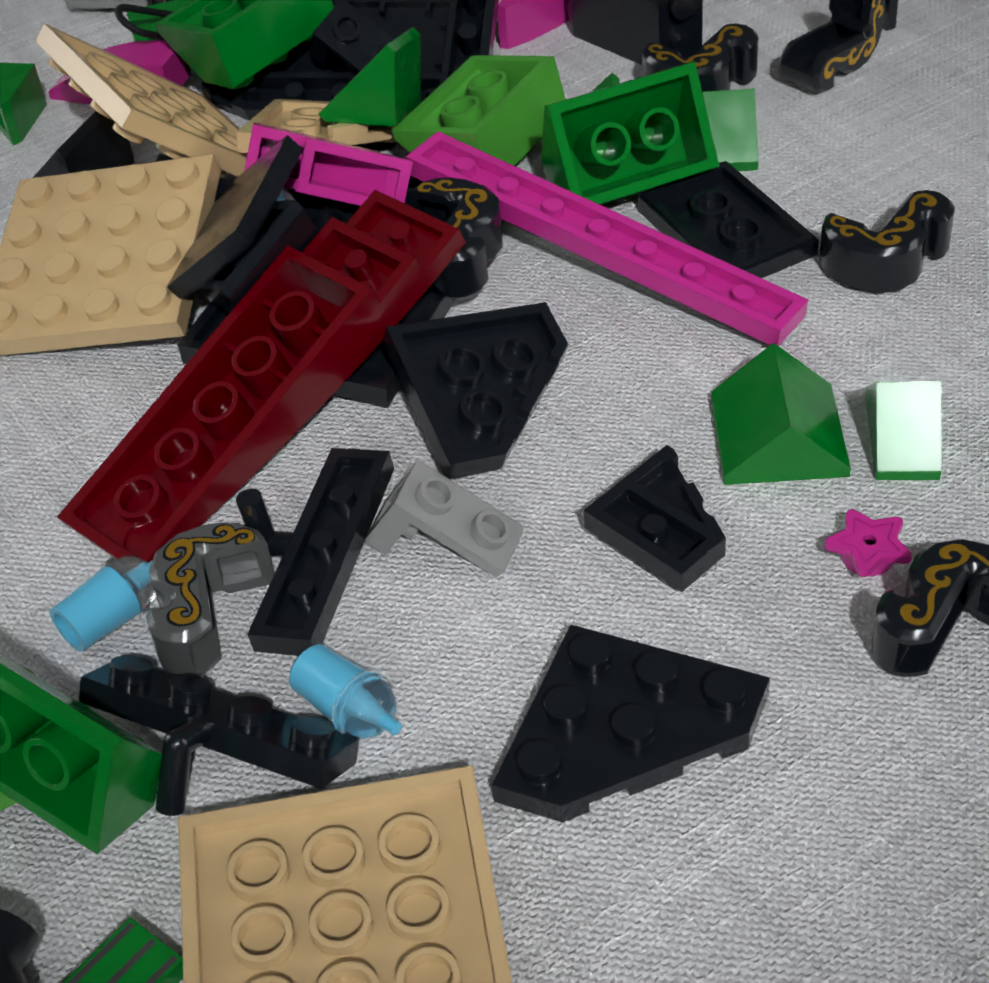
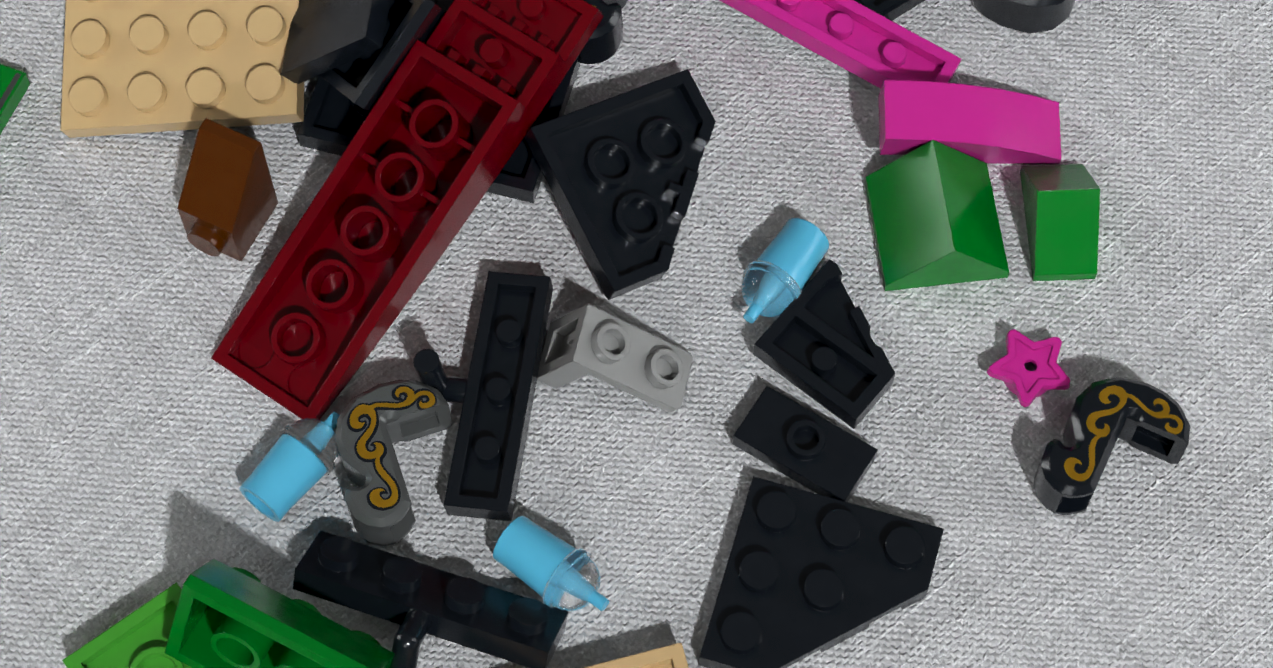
camera: 10 degrees left, 20 degrees up
(99, 377) = (226, 192): none -> reddish brown slope
(619, 452) = (783, 269): none -> piece
(628, 603) = (804, 446): none -> black plate
(828, 341) = (973, 119): none -> dark pink slope

